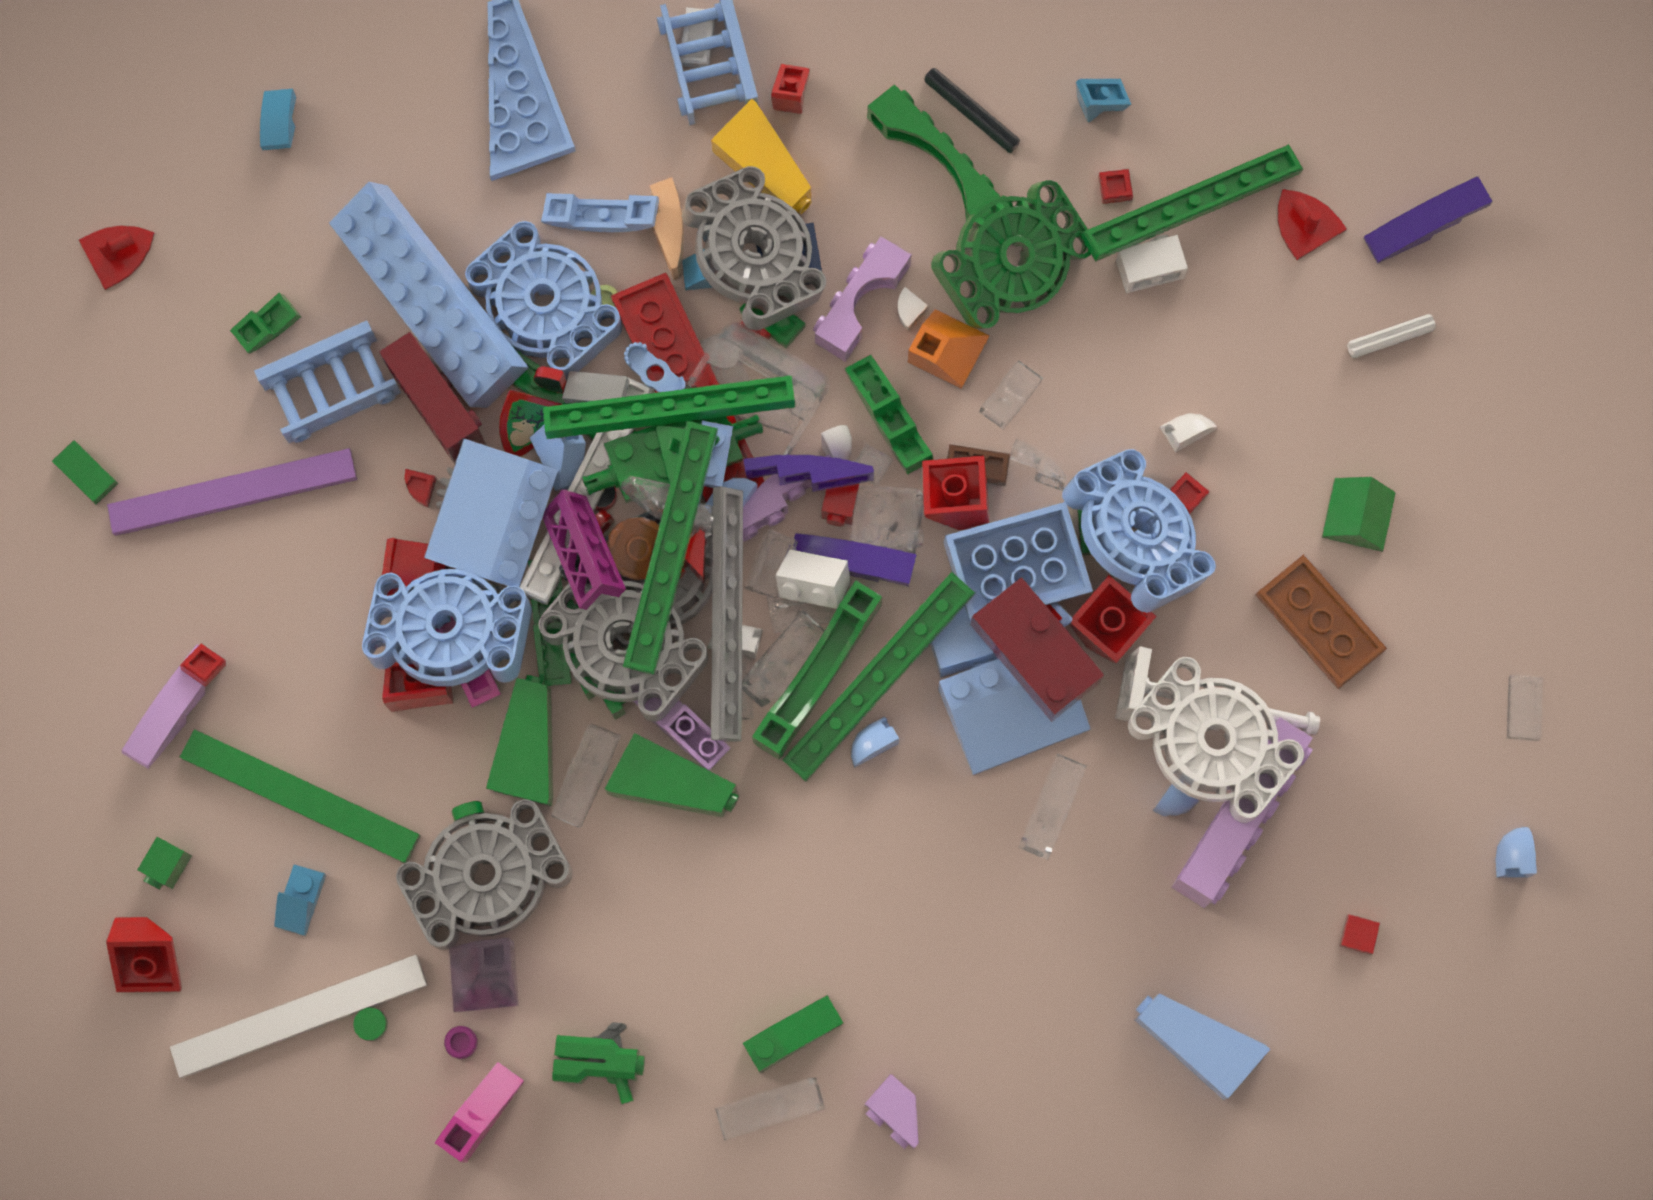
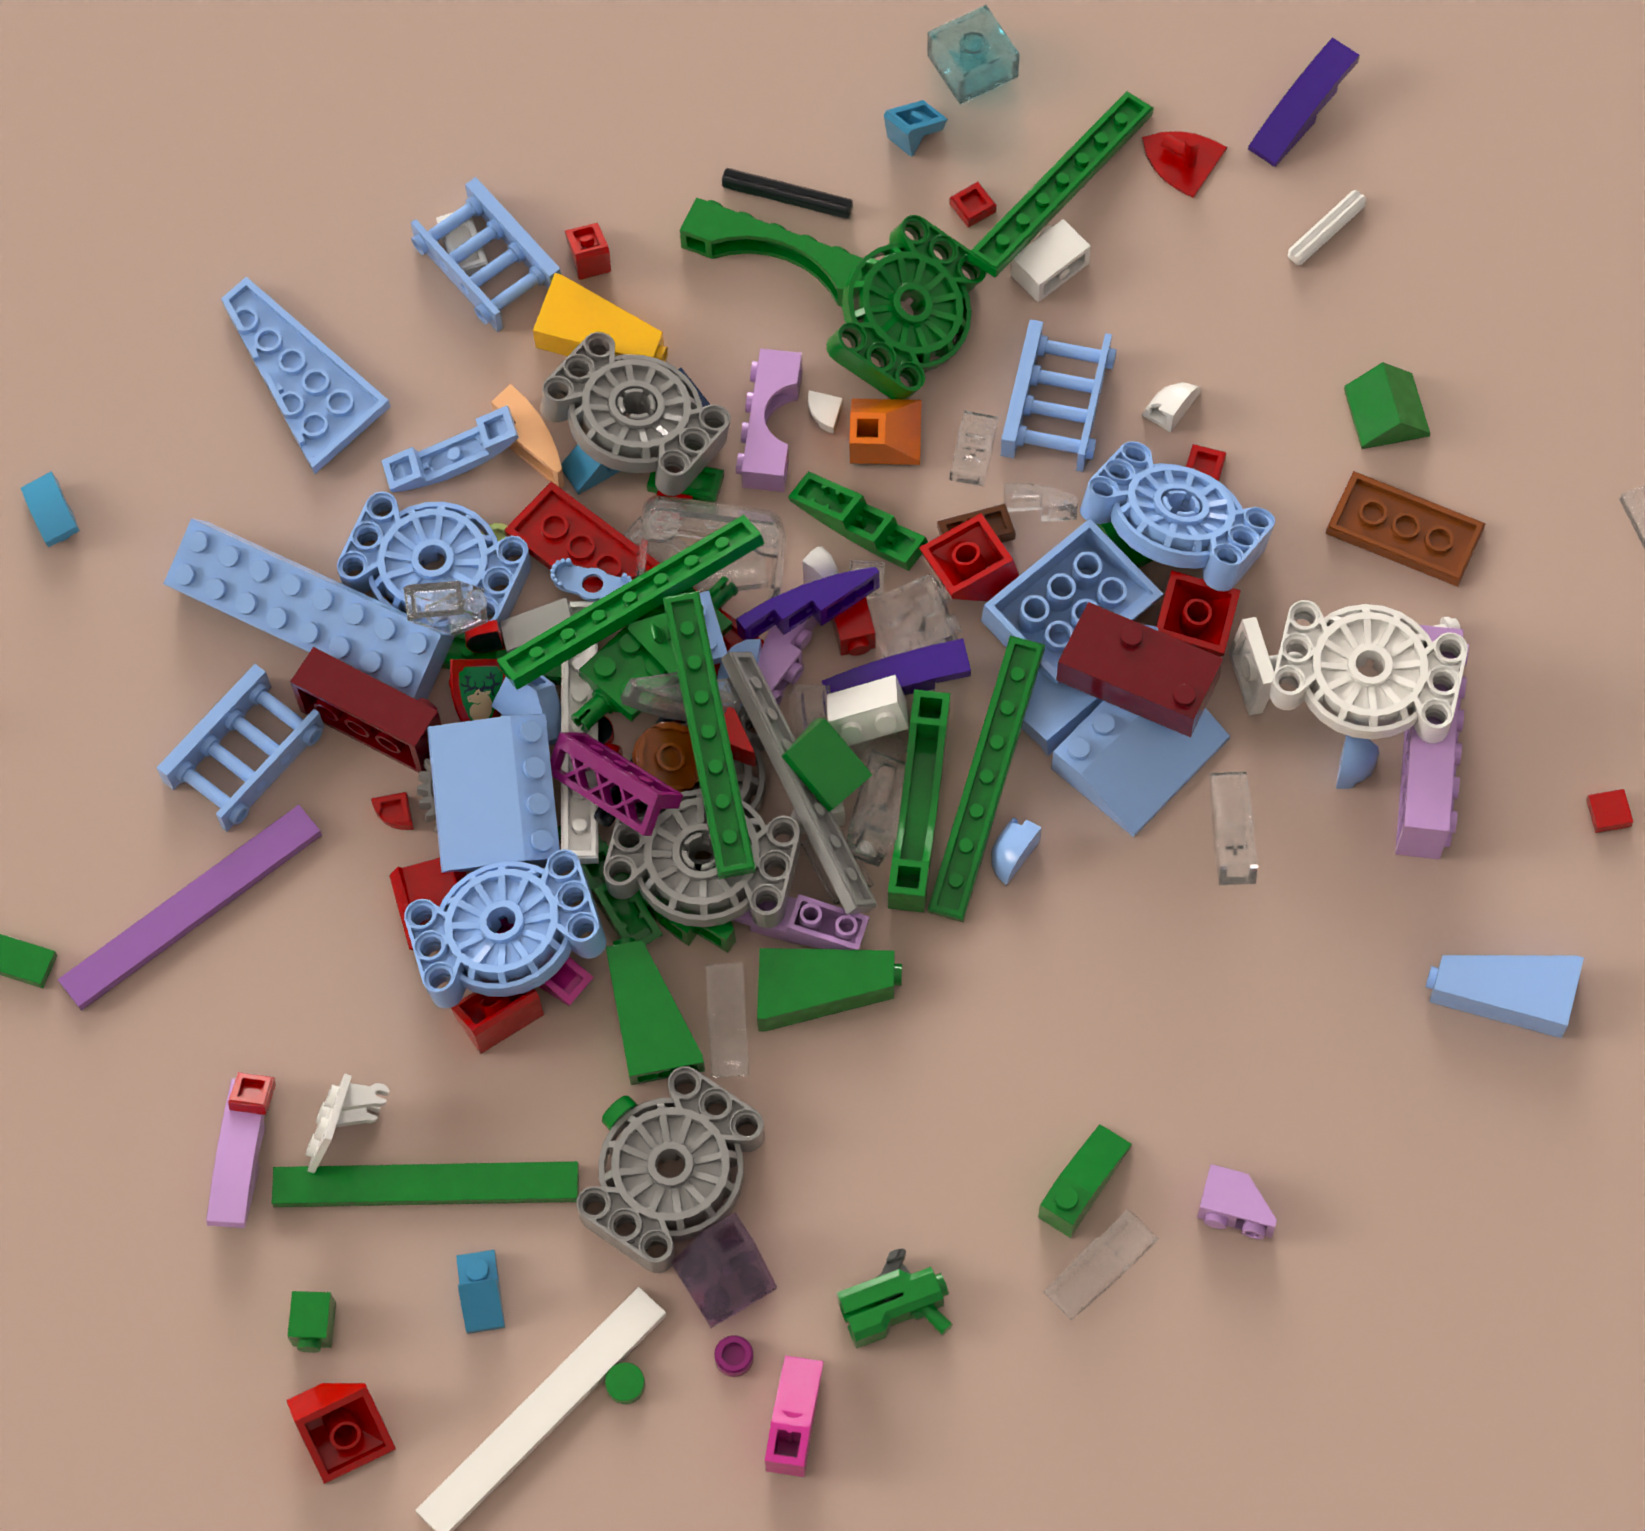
camera: 25 degrees left, 10 degrees down
(262, 709) = (343, 1107): none -> white plate
(265, 325) = (141, 721): green slope -> none
(525, 344) = (446, 606): none -> clear slope
(755, 610) = (826, 764): none -> green slope
(1086, 354) = (1031, 374): none -> light blue fence
(1178, 58) = (973, 54): none -> clear light blue brick

